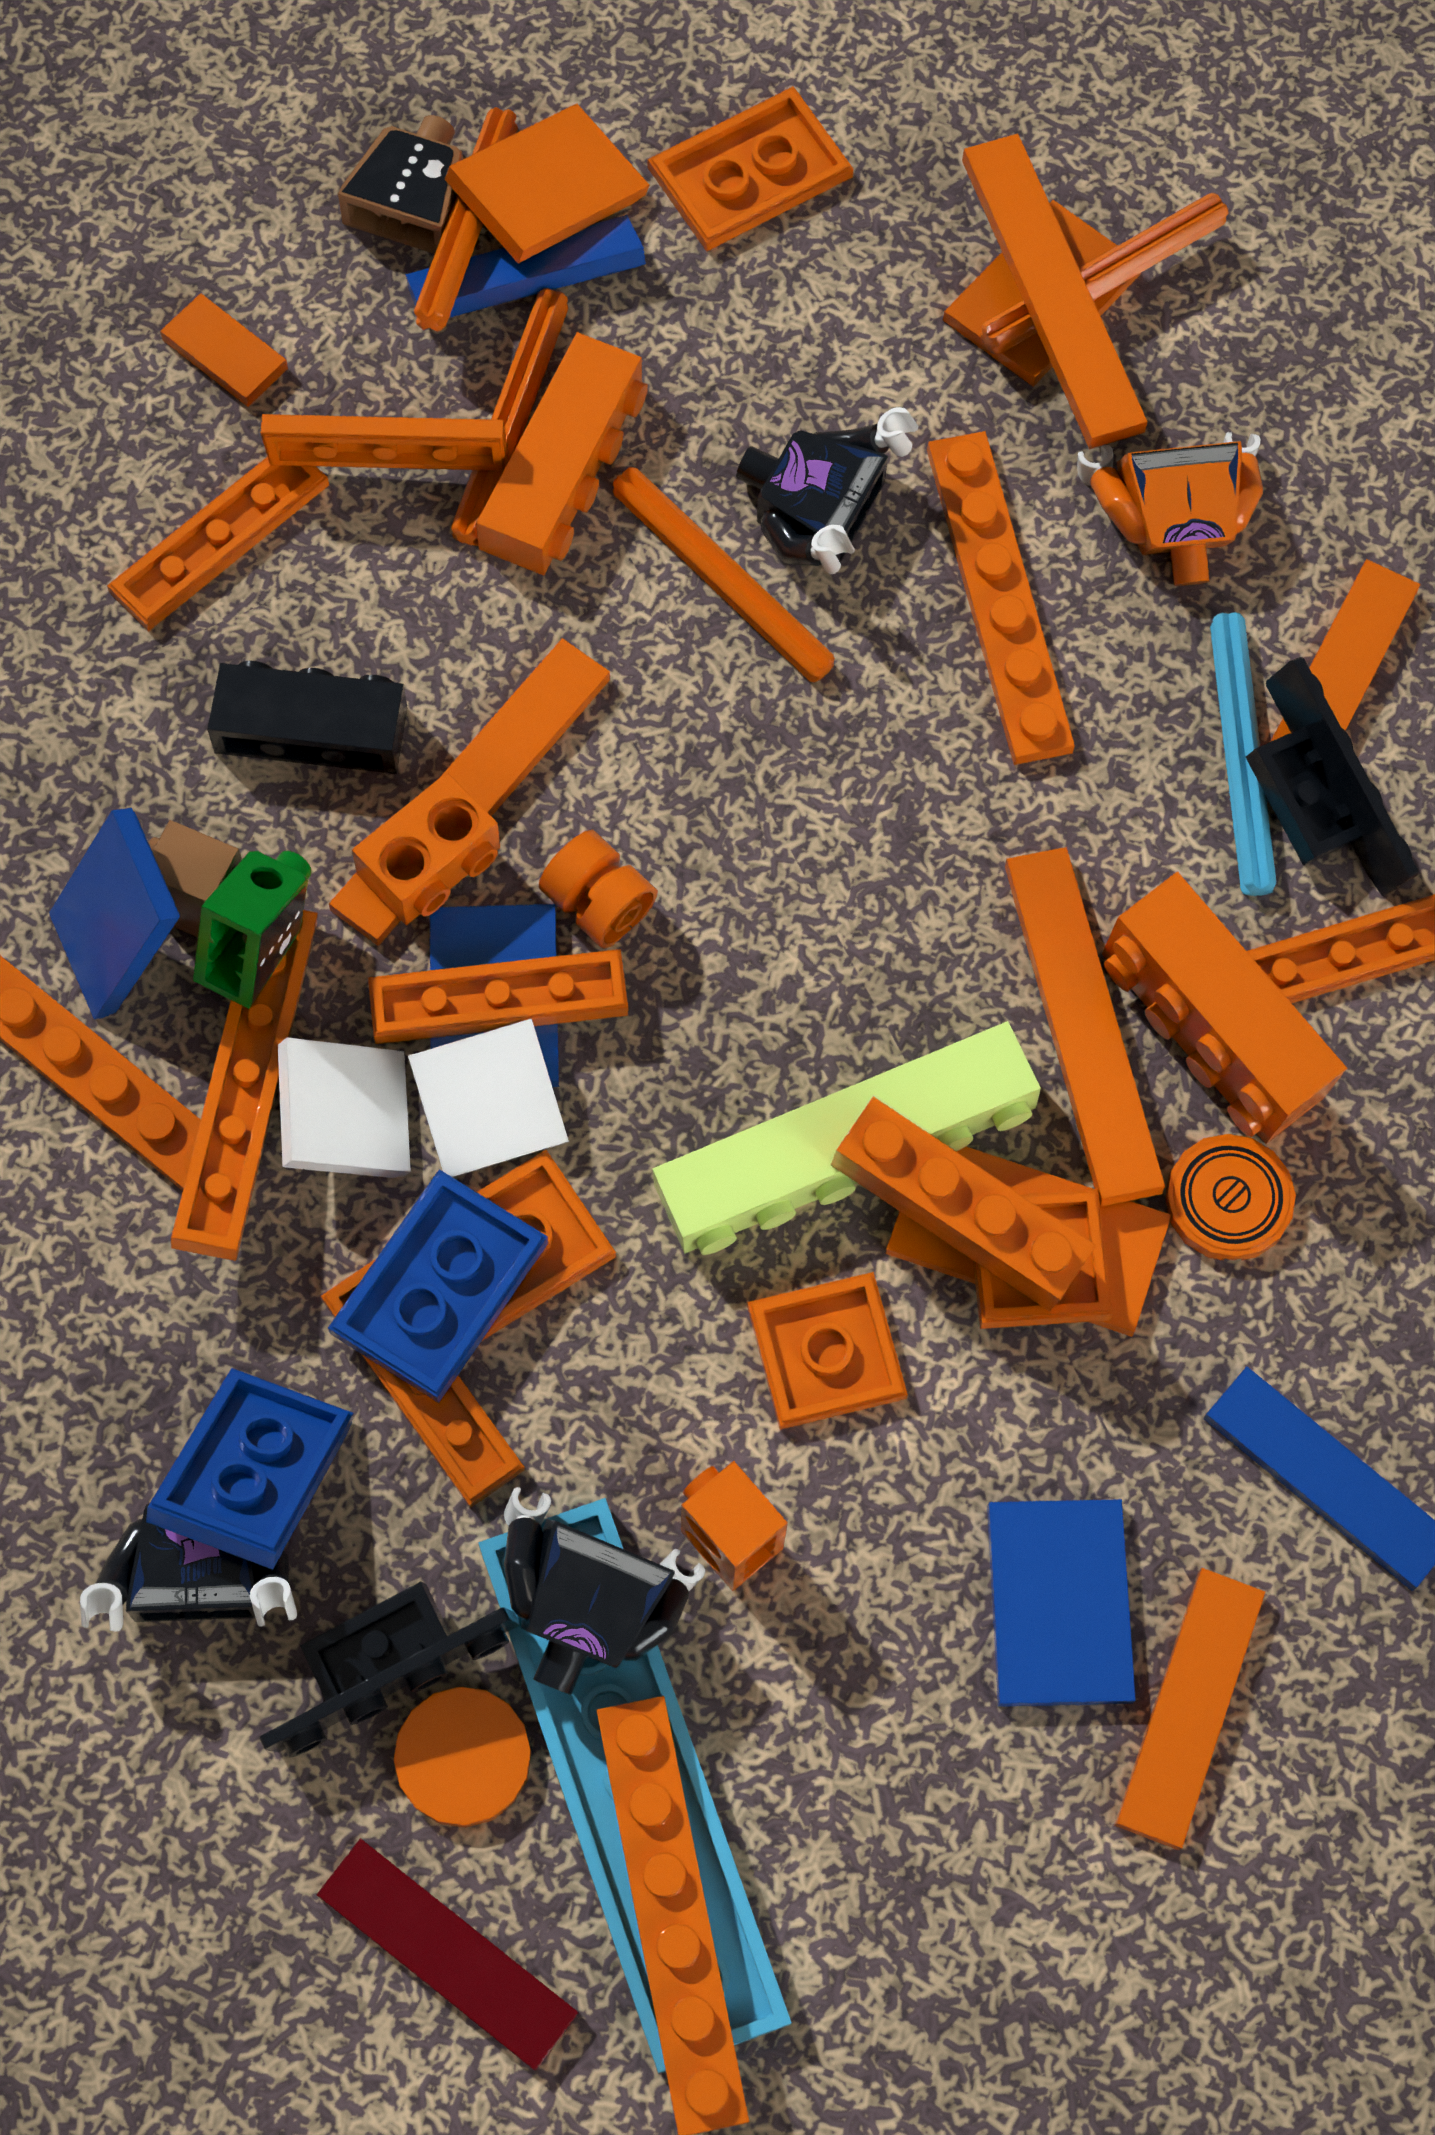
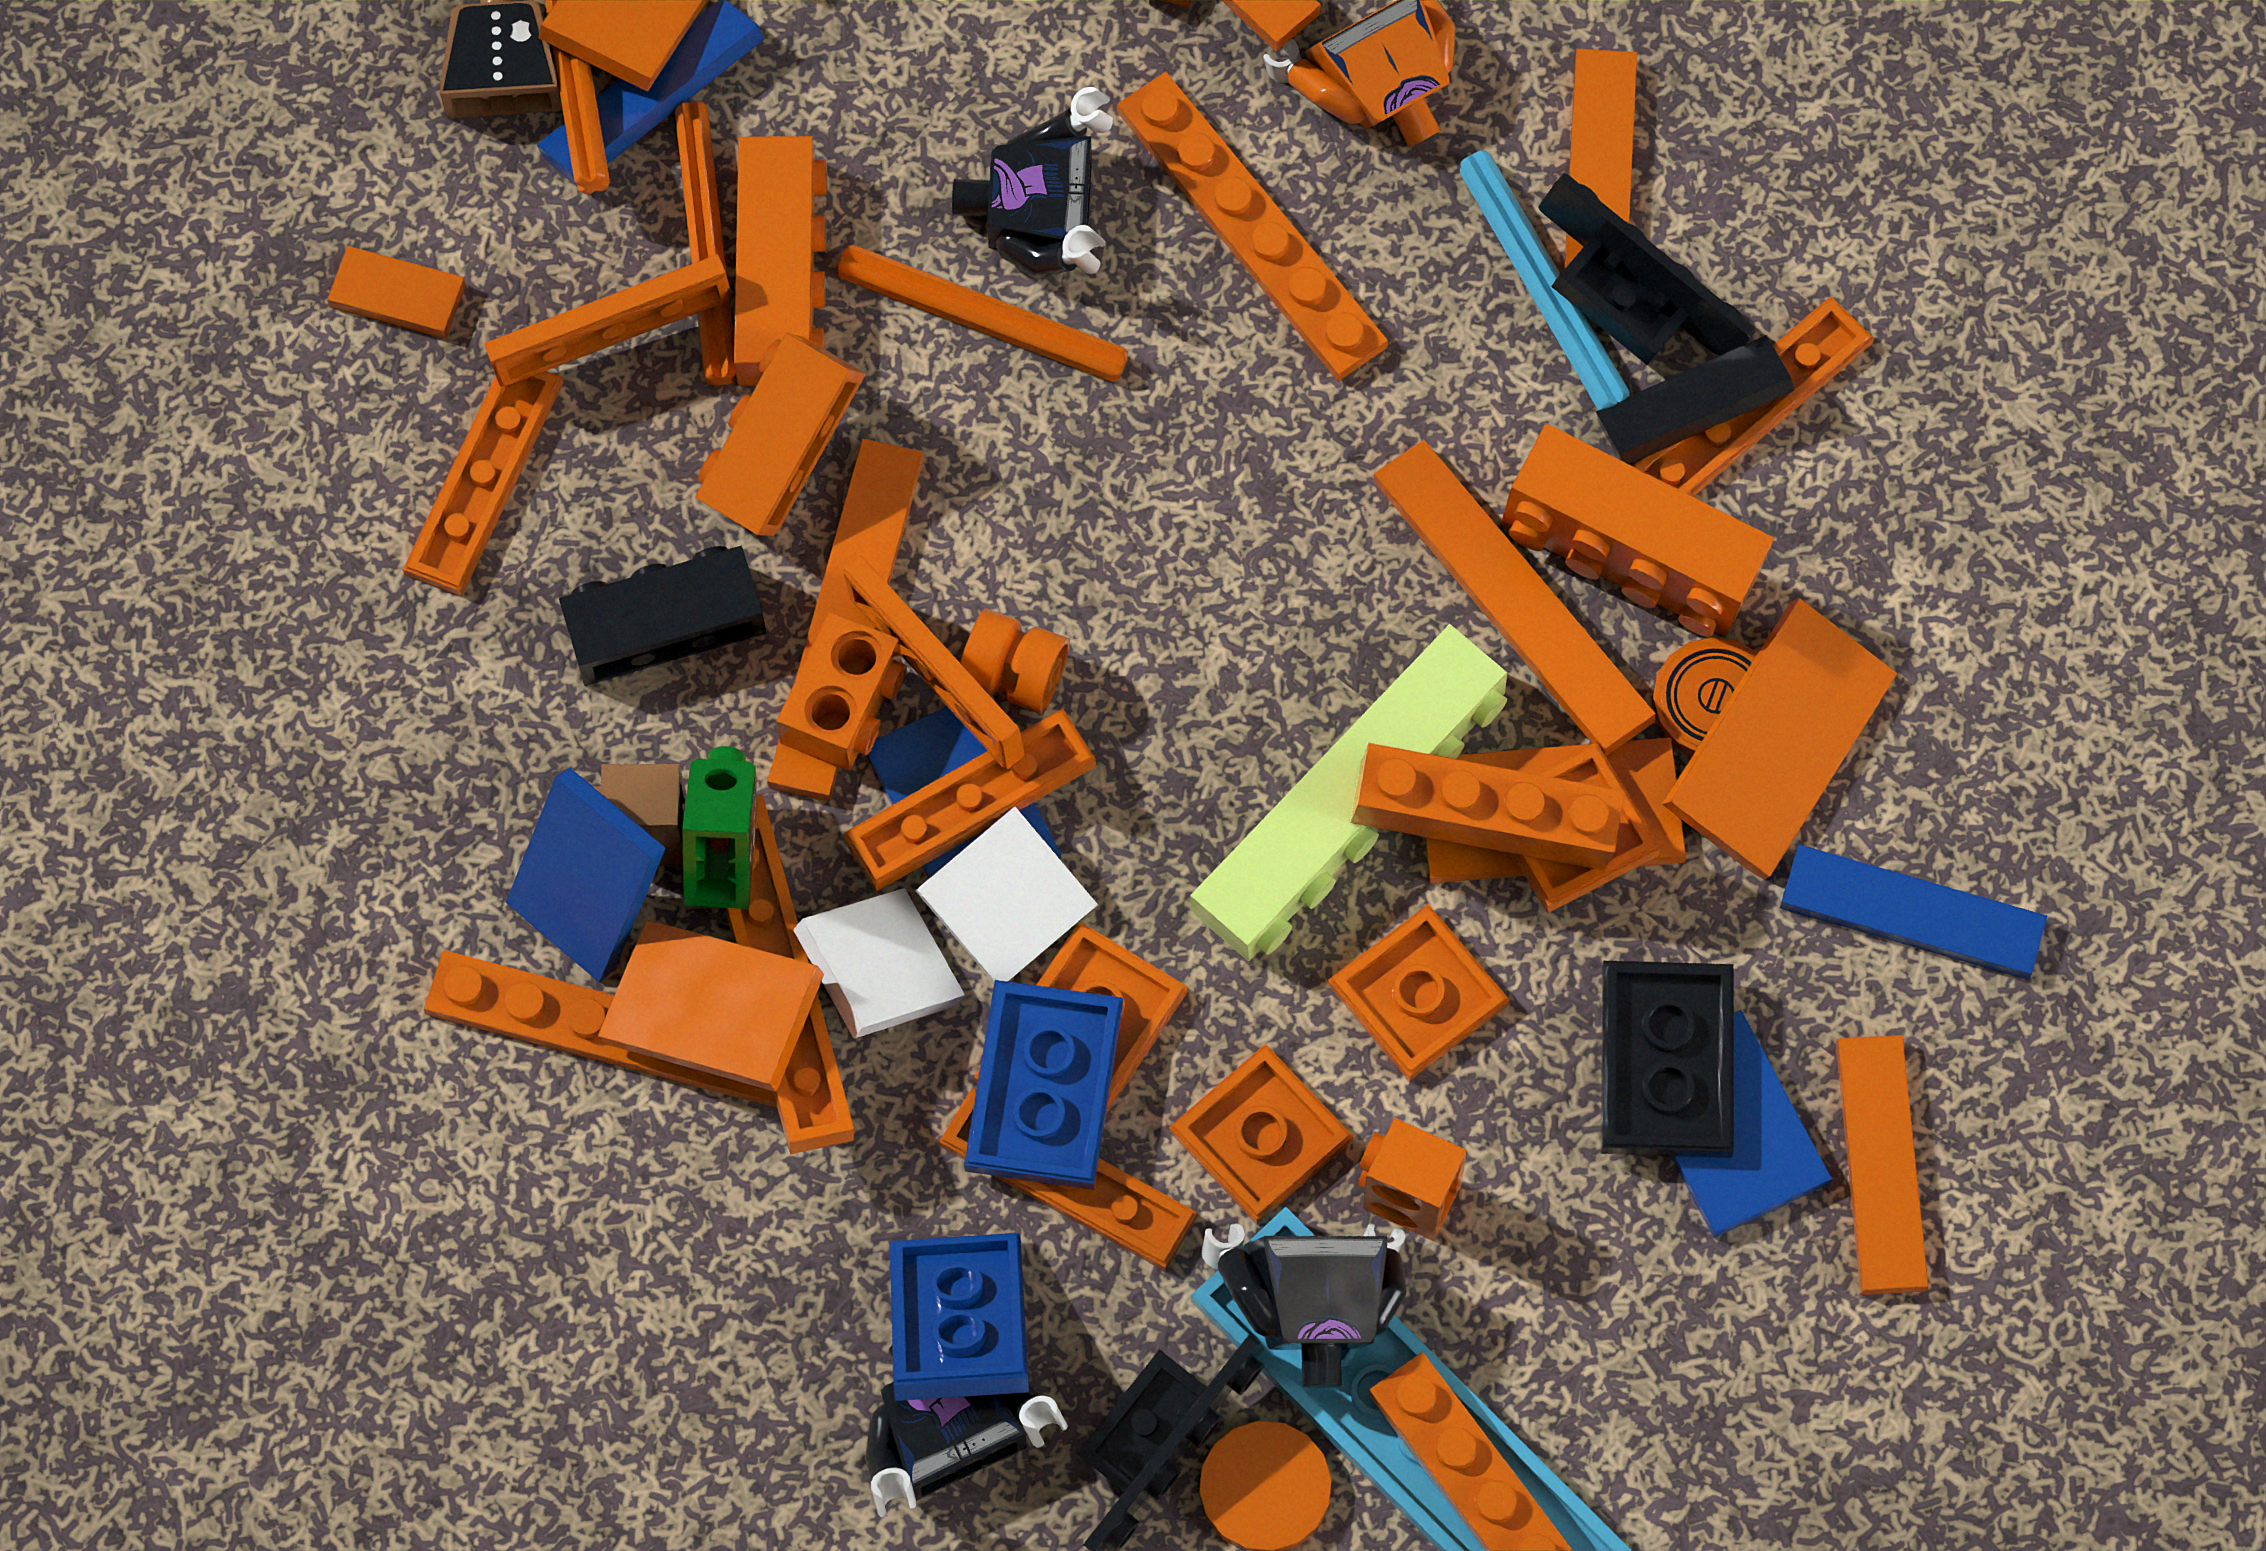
camera: 20 degrees left, 0 degrees up
(168, 1081) = (711, 1005): none -> orange tile
(484, 600) = (778, 434): none -> orange brick
(521, 859) = (934, 663): none -> orange tile
(619, 1419) = (1261, 1134): none -> orange tile
(1029, 1517) = (1667, 1059): none -> black tile
(1272, 1260) = (1779, 739): none -> orange tile
(1334, 915) = (1695, 400): none -> black tile

